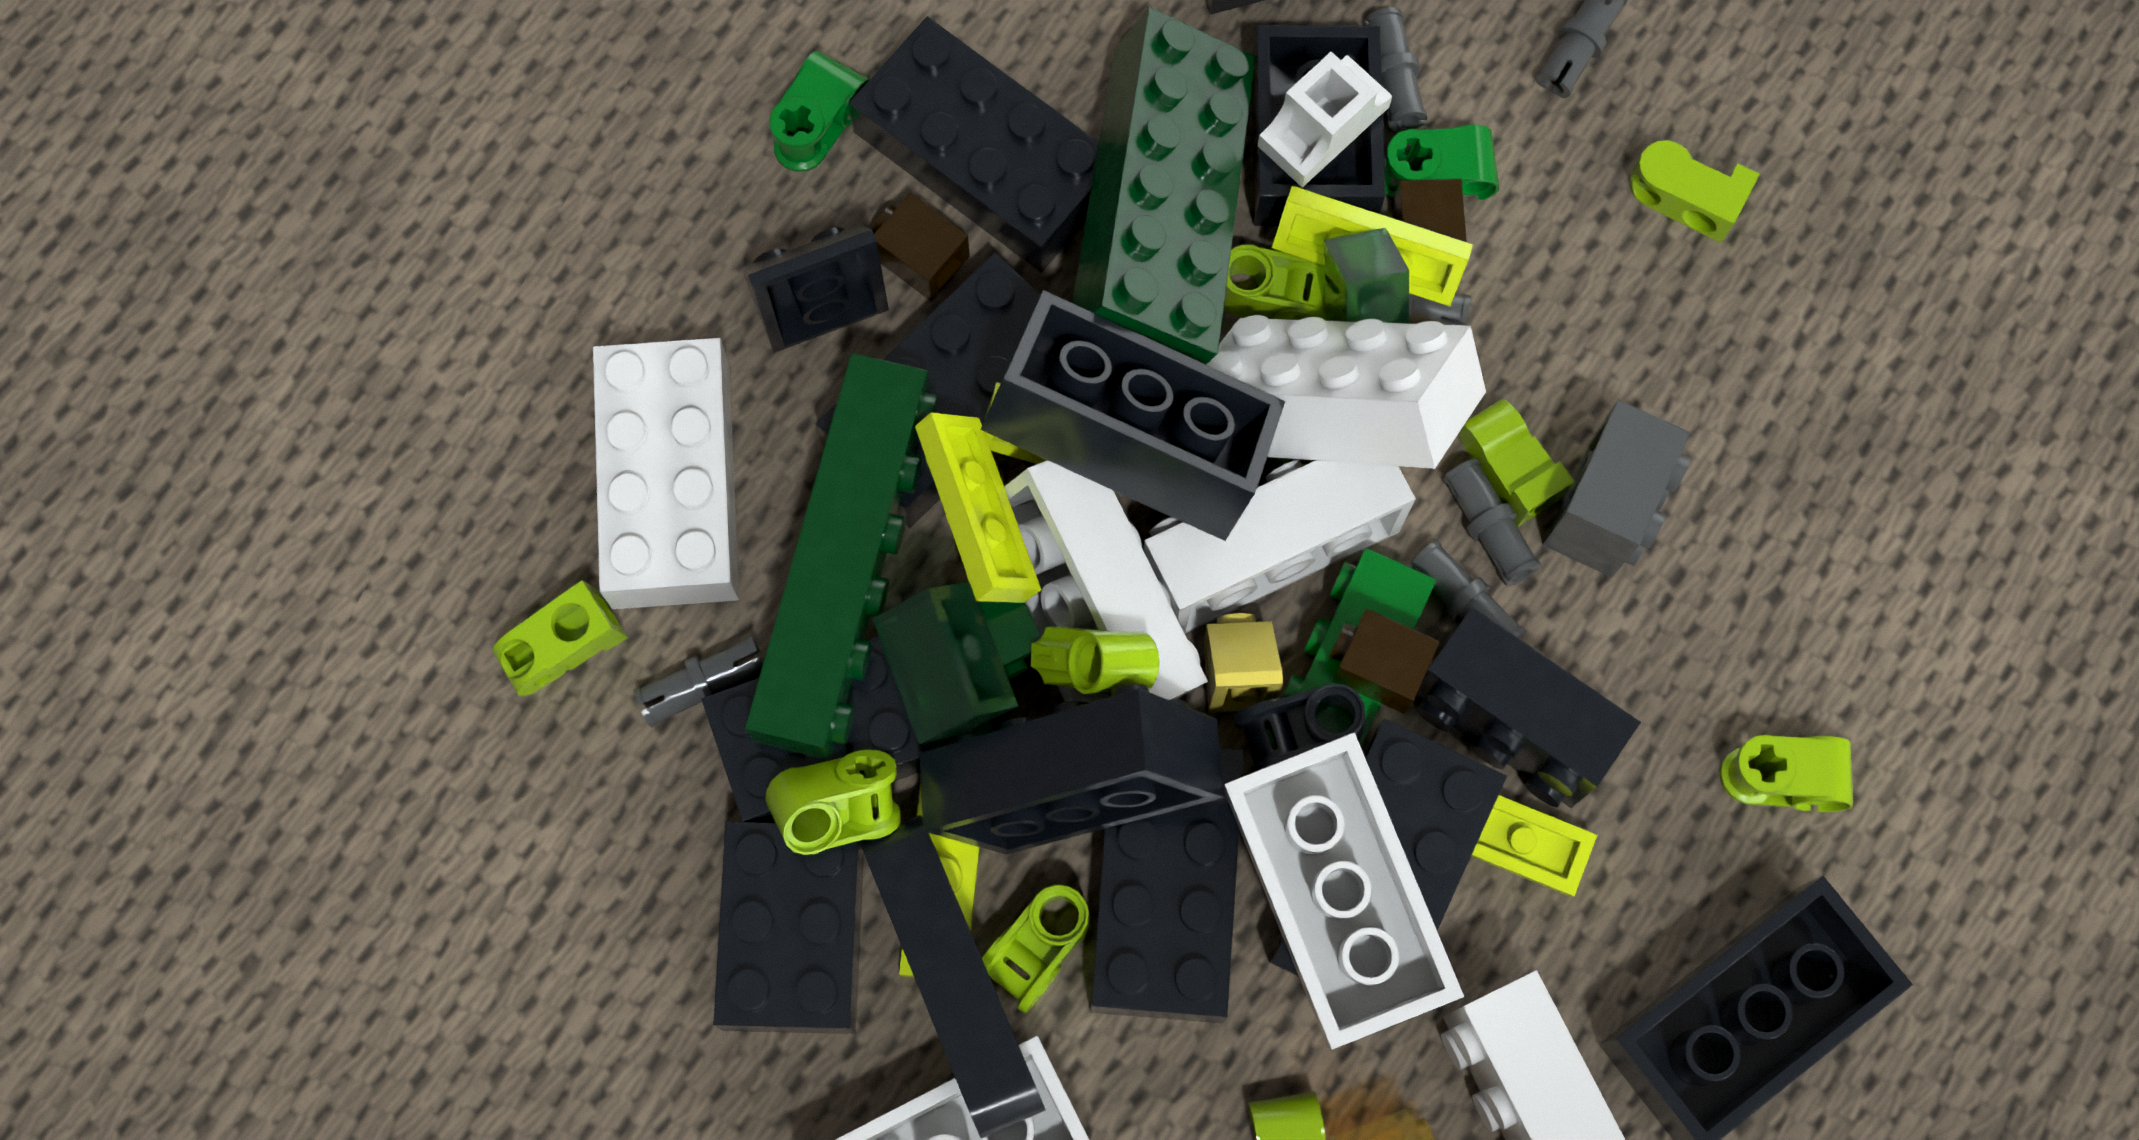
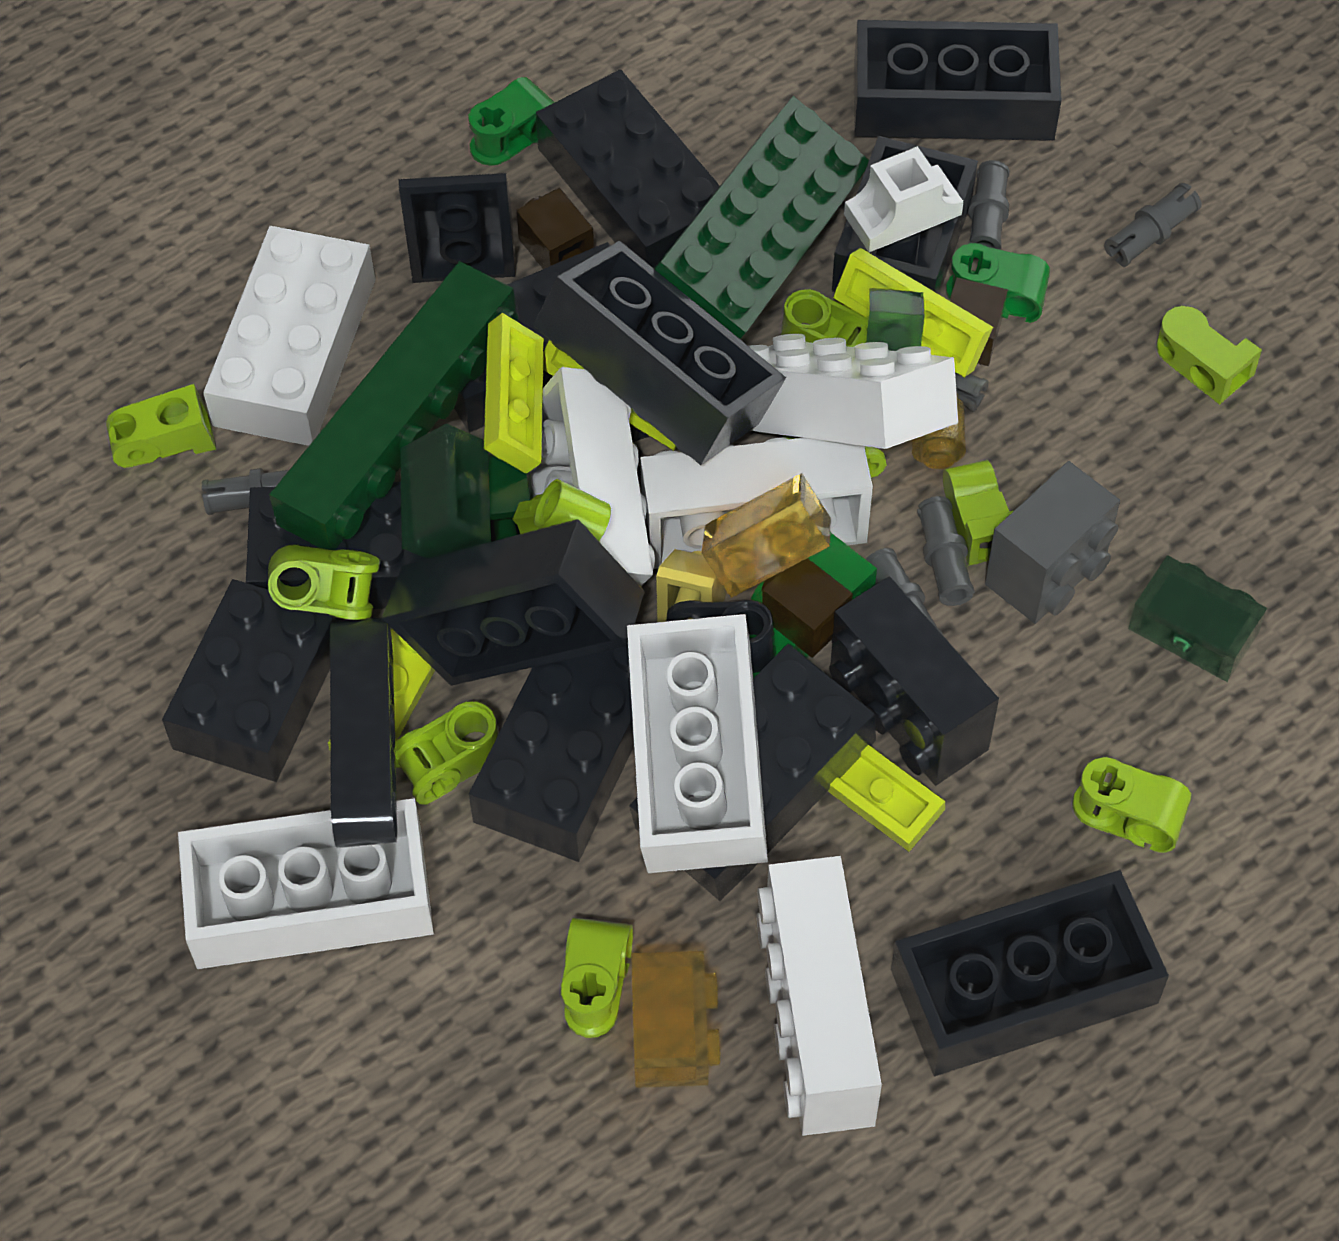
camera: 20 degrees right, 15 degrees down
(1321, 598) = (766, 535): none -> clear yellow brick
(1790, 524) = (1197, 617): none -> clear green brick

